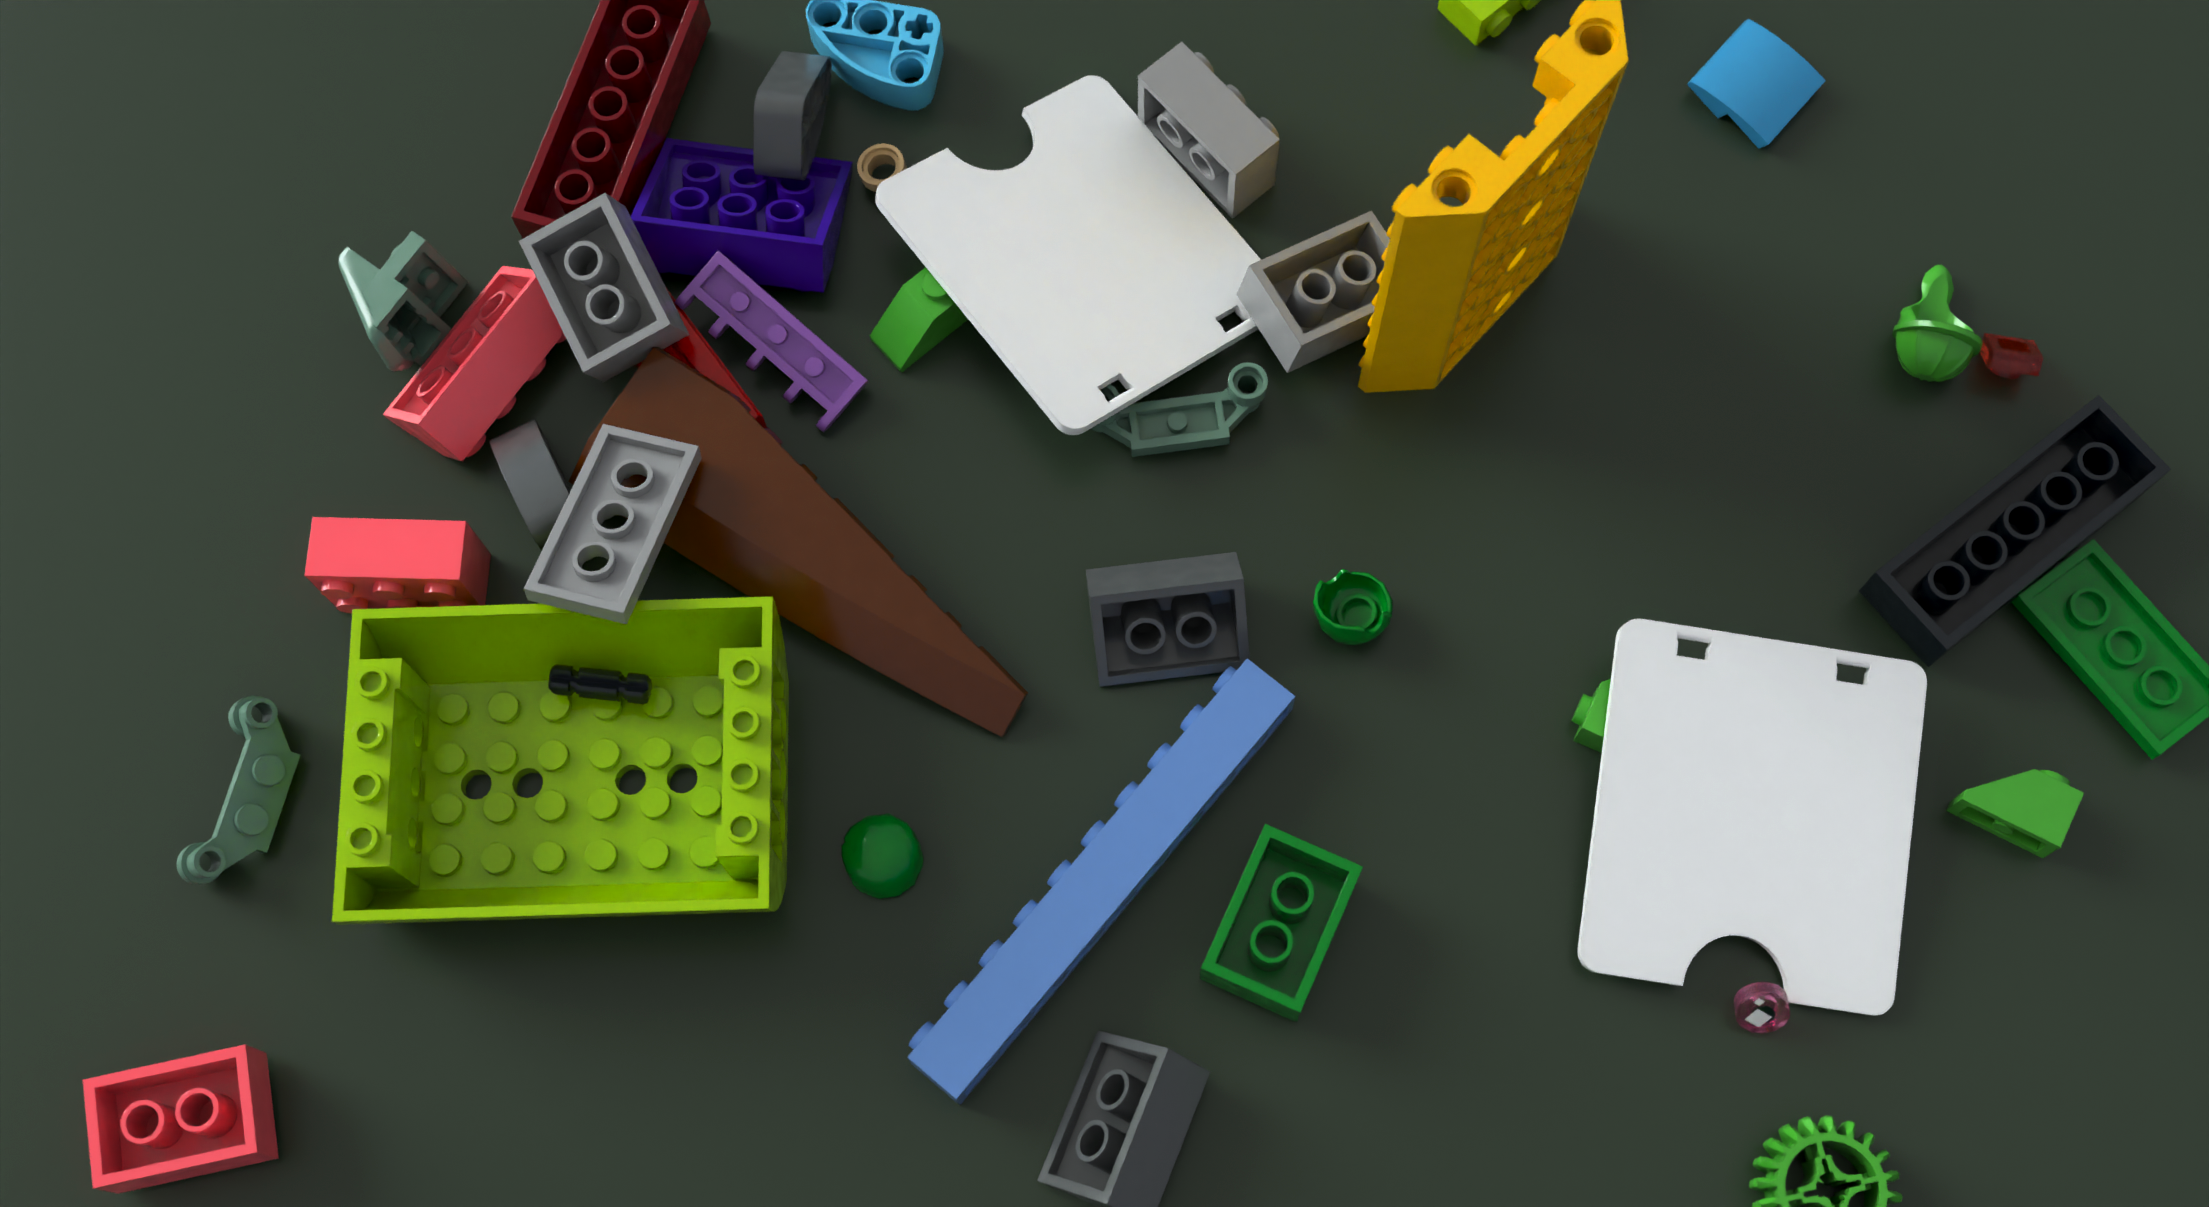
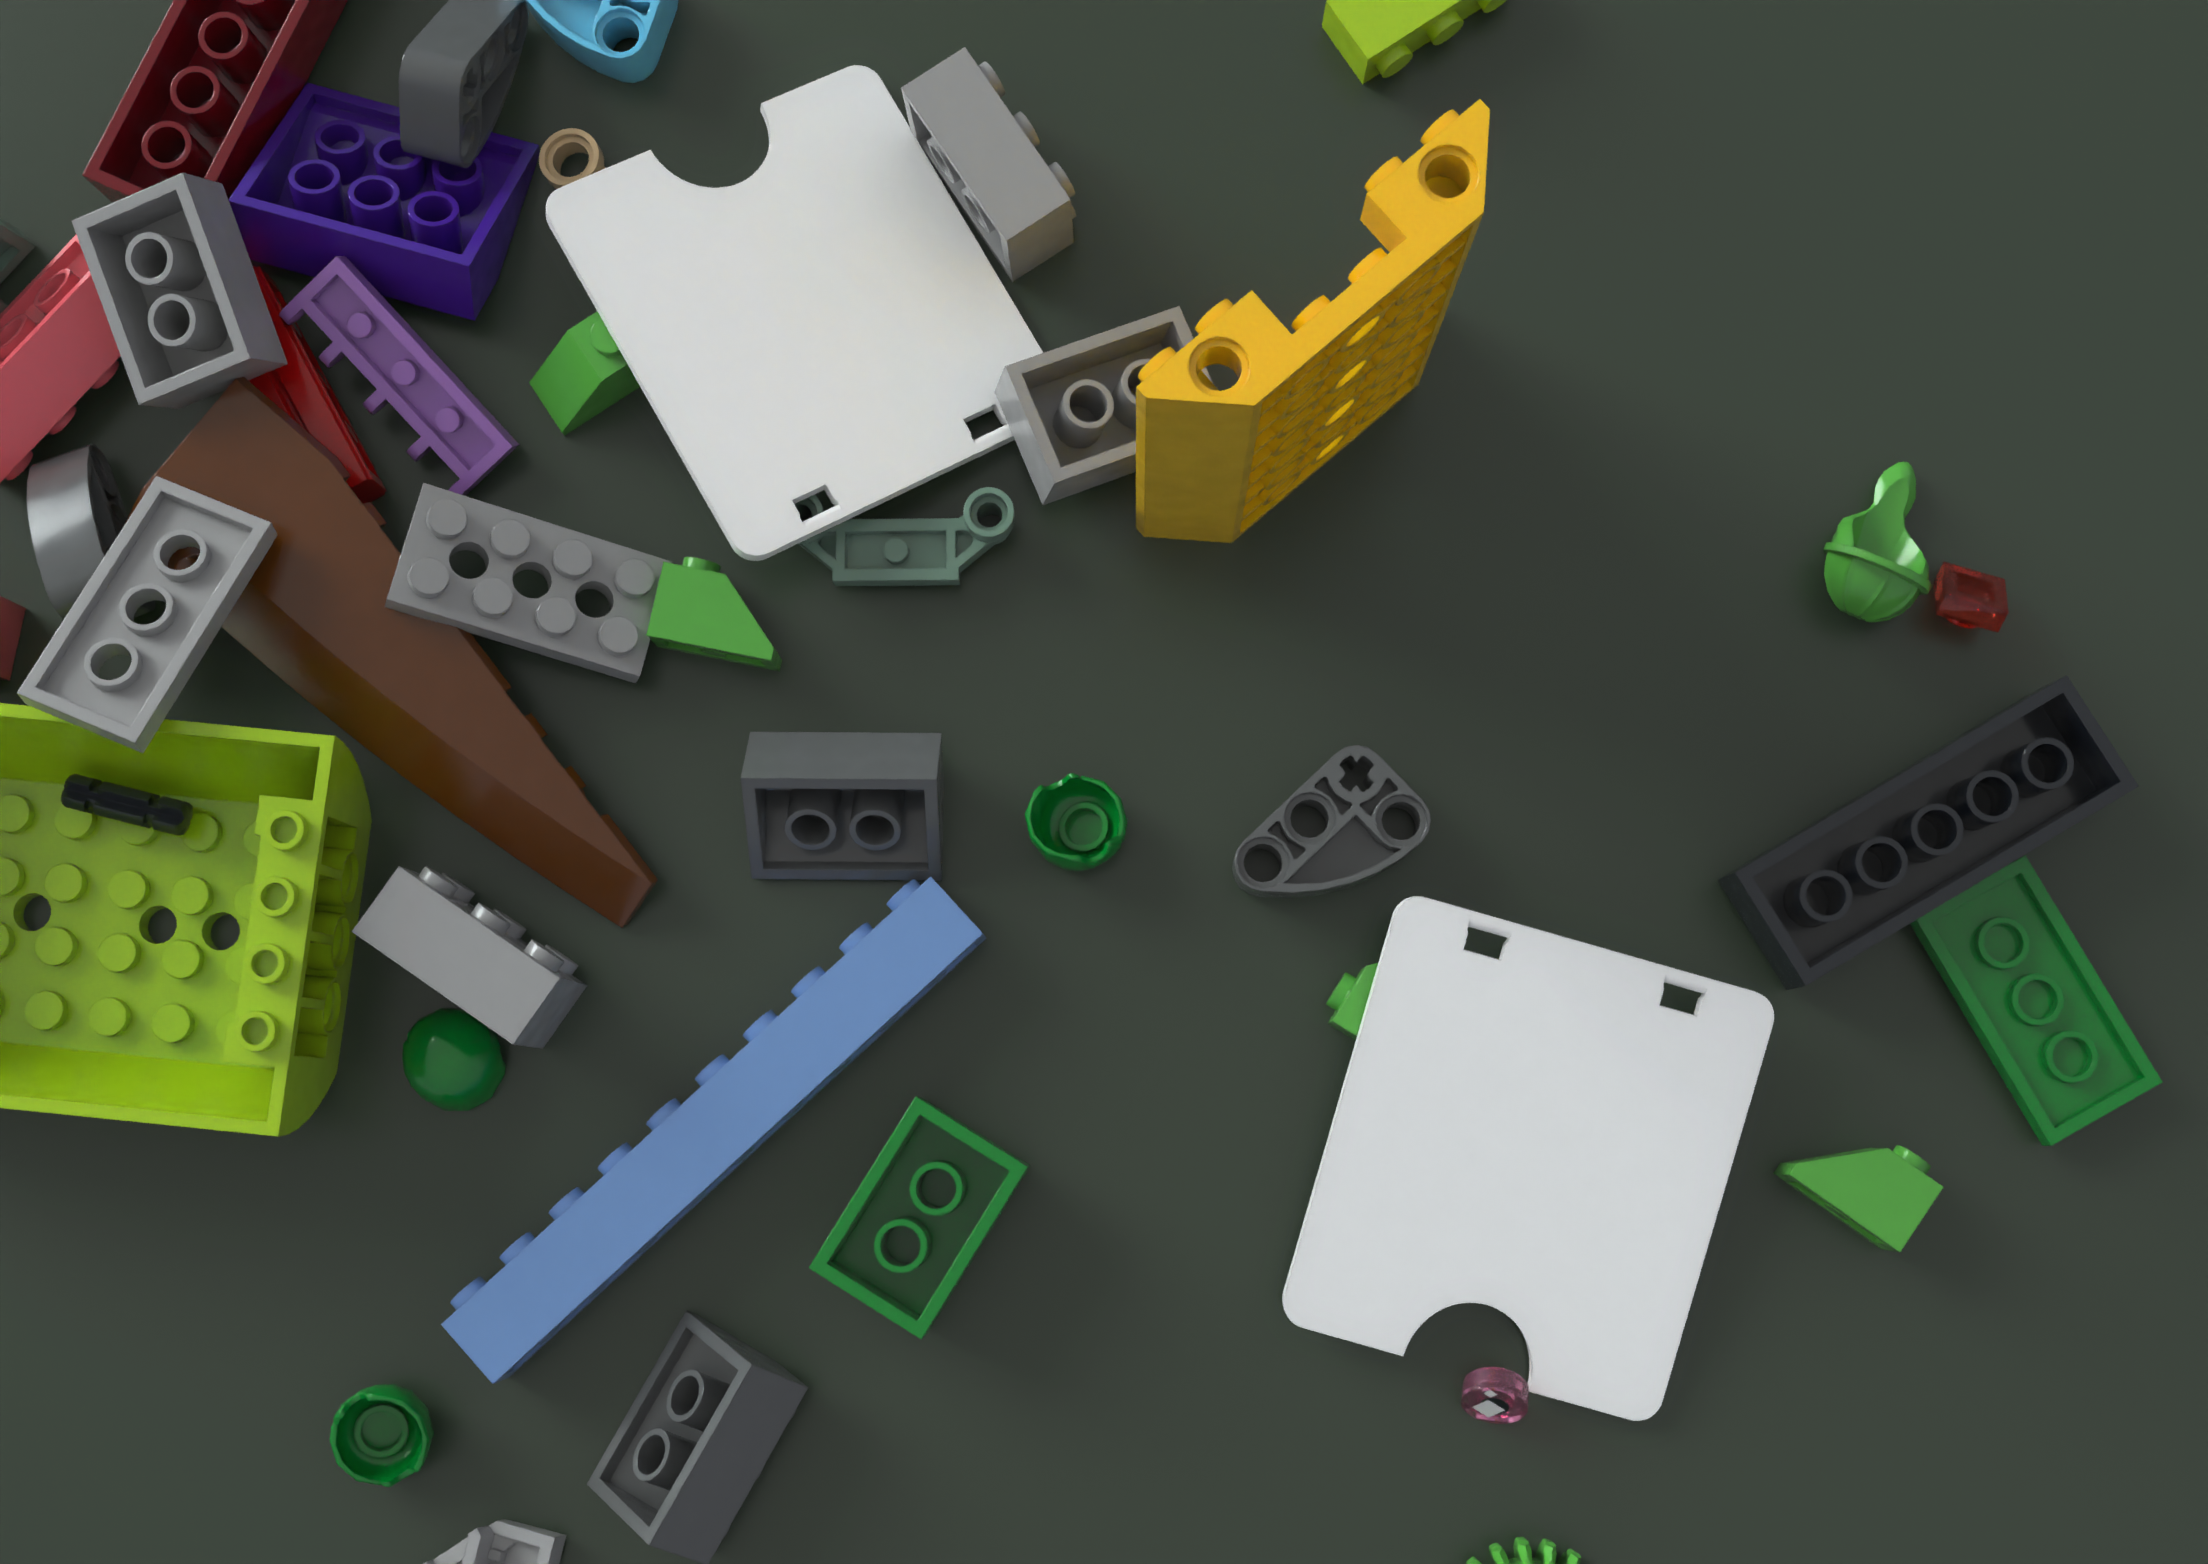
camera: 10 degrees right, 10 degrees up
(867, 1157) = (381, 1434): none -> green hair
(876, 499) = (496, 610): none -> light grey plate
(892, 764) = (472, 955): none -> light grey brick
(1040, 490) = (707, 617): none -> bright green slope
(1570, 594) = (1353, 838): none -> dark grey beam
(1756, 82) = (1714, 183): dark azure slope -> none

